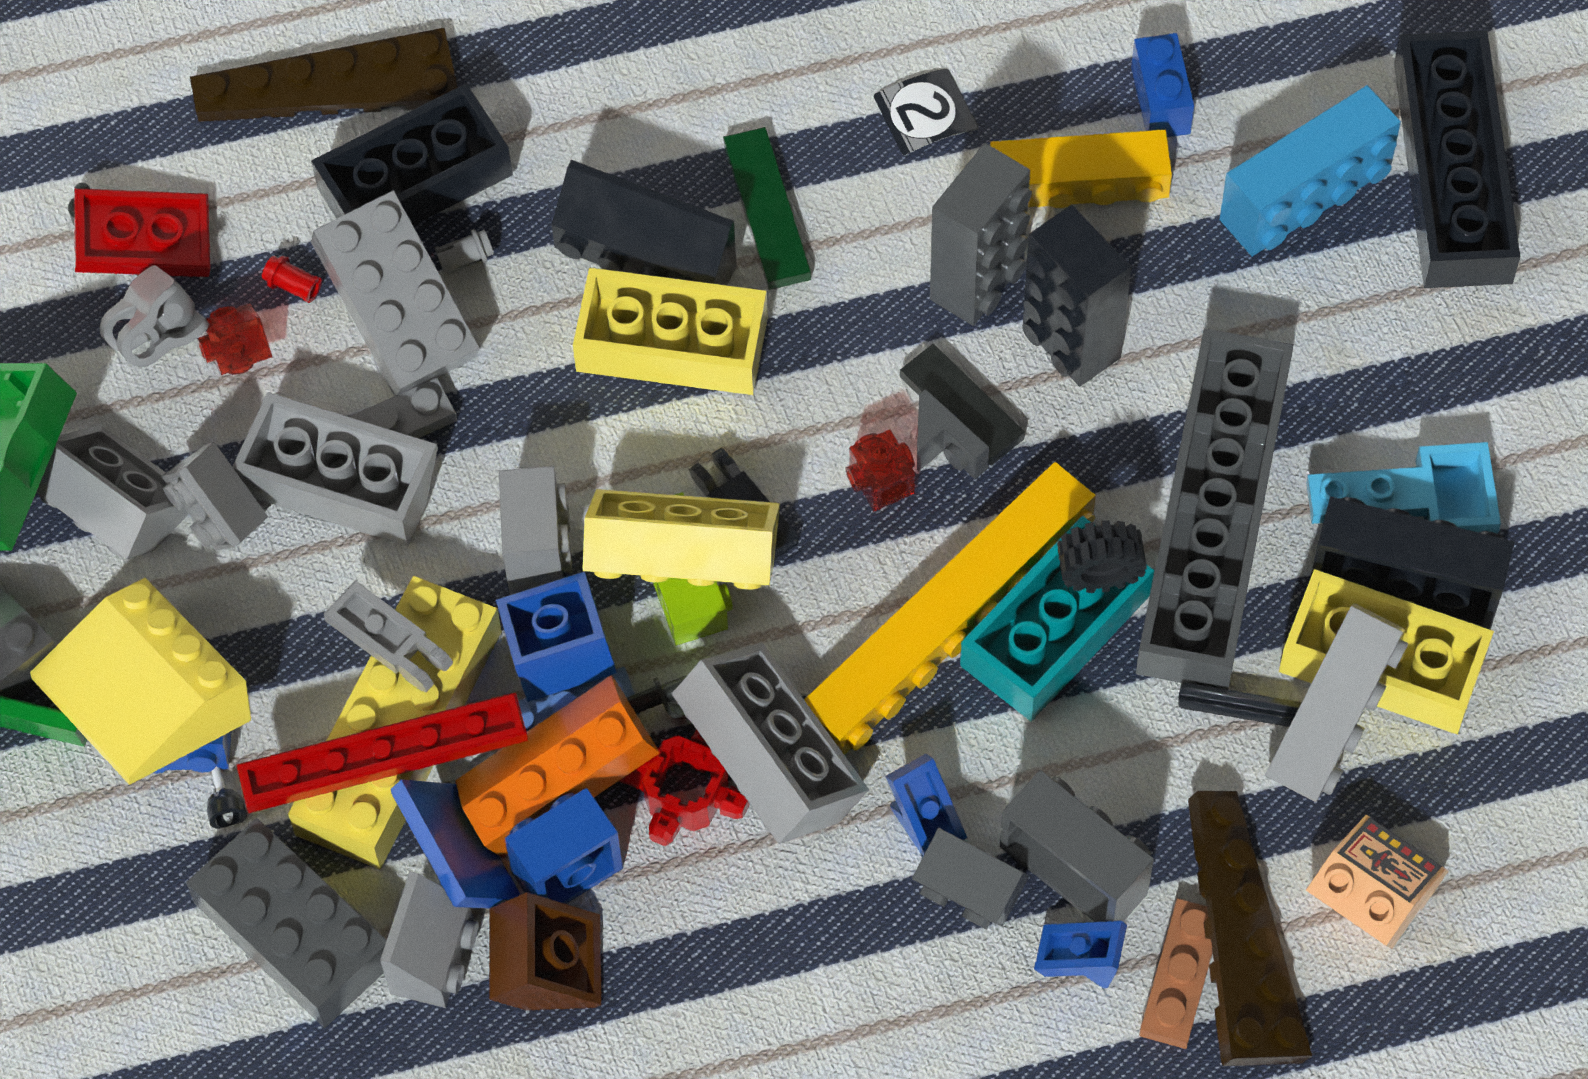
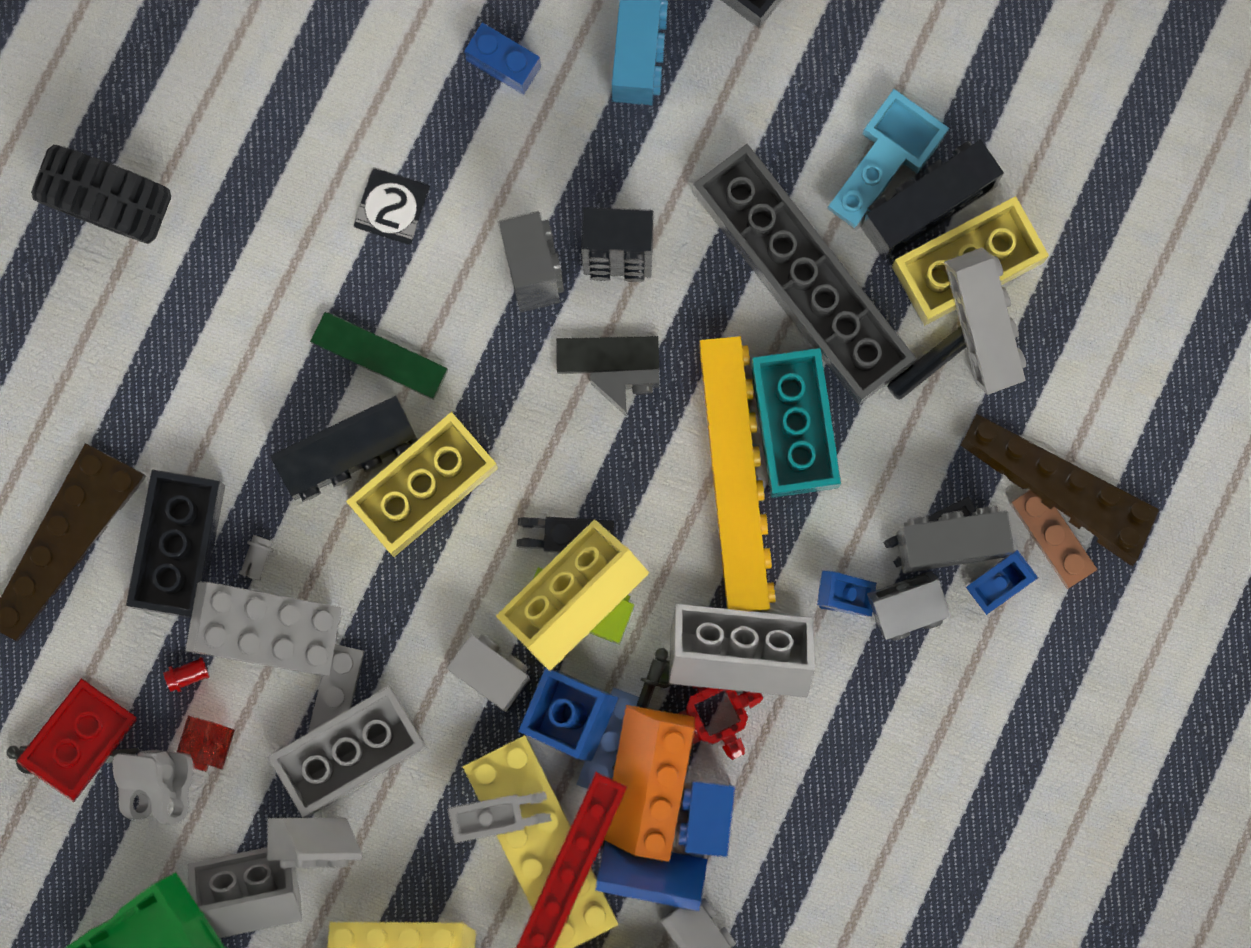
camera: 50 degrees left, 20 degrees up
(544, 954) = (755, 876): reddish brown slope -> none
(881, 469) = (617, 426): clear red brick -> none
(1094, 167) = (516, 155): yellow brick -> none
(1101, 556) = (799, 376): black tyre -> none
(1377, 881) = (1096, 388): light nougat piece -> none

